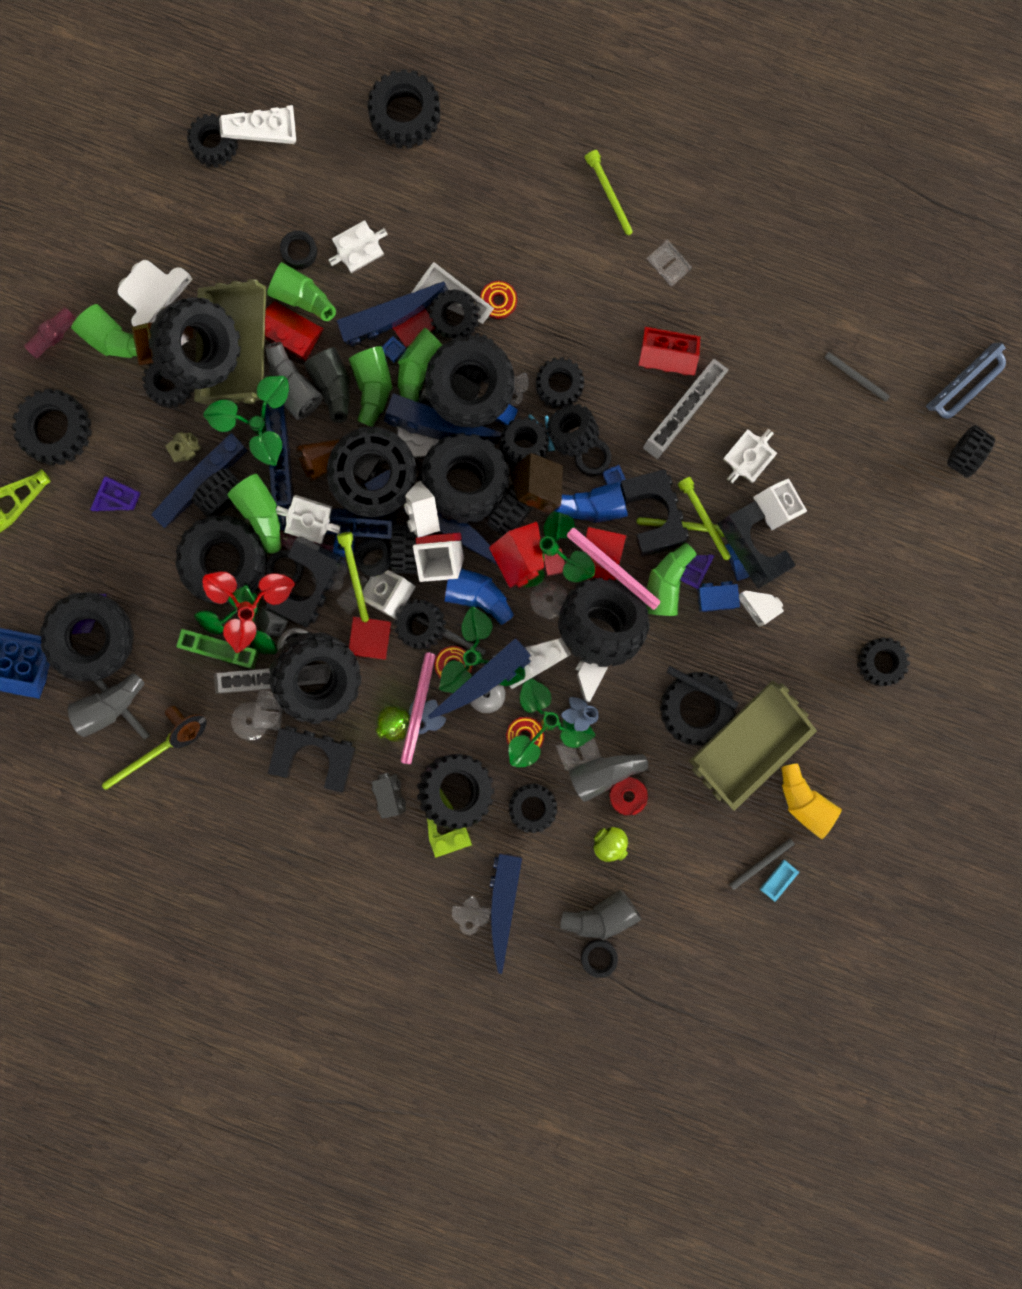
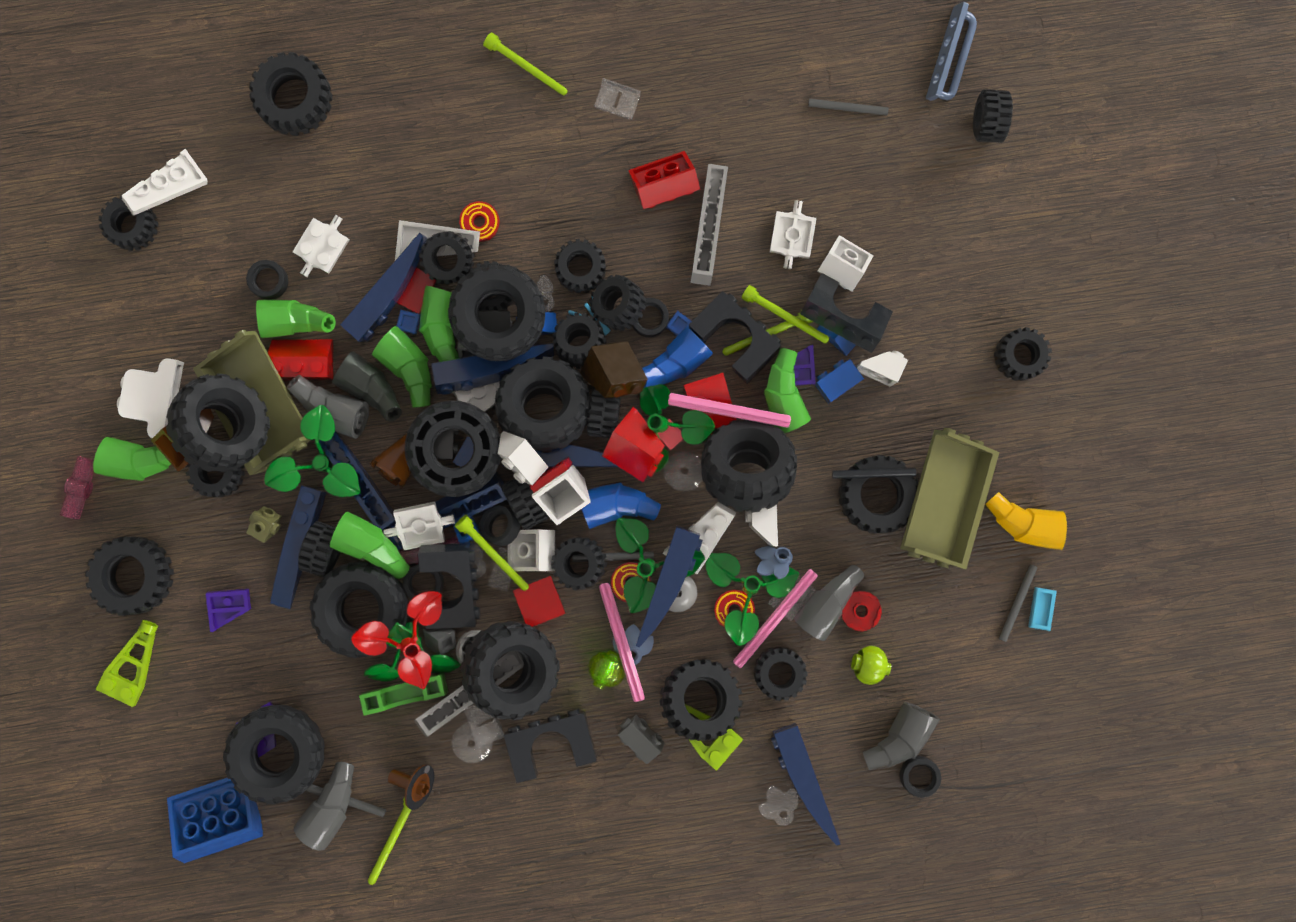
camera: 30 degrees left, 0 degrees up
(554, 761) = (775, 618): none -> bright pink axle

